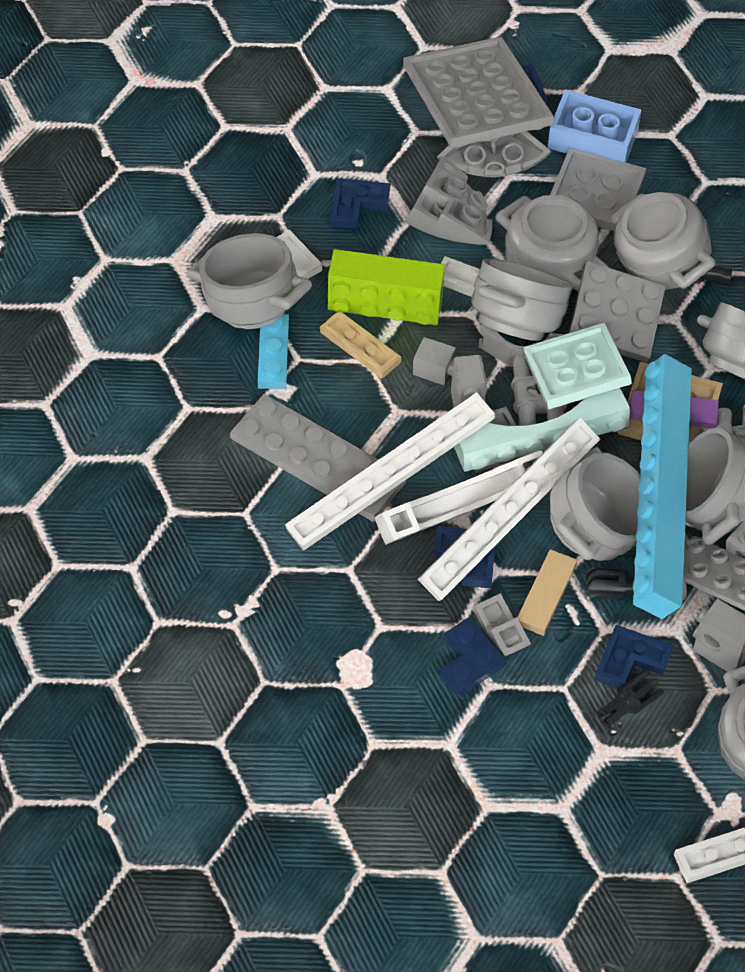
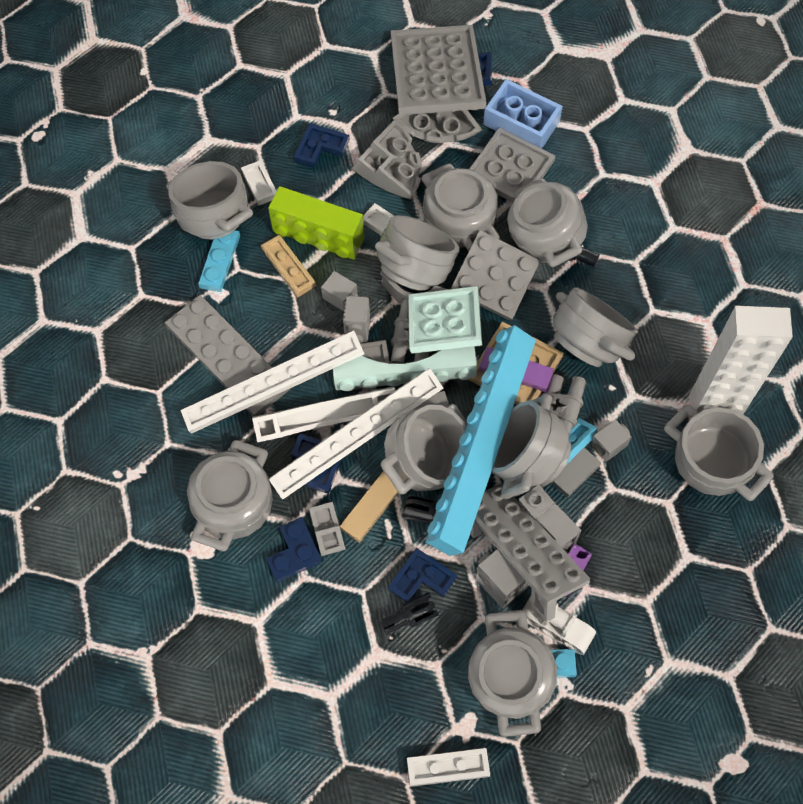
camera: 15 degrees right, 10 degrees up
(376, 607) = (229, 495): none -> light grey piece

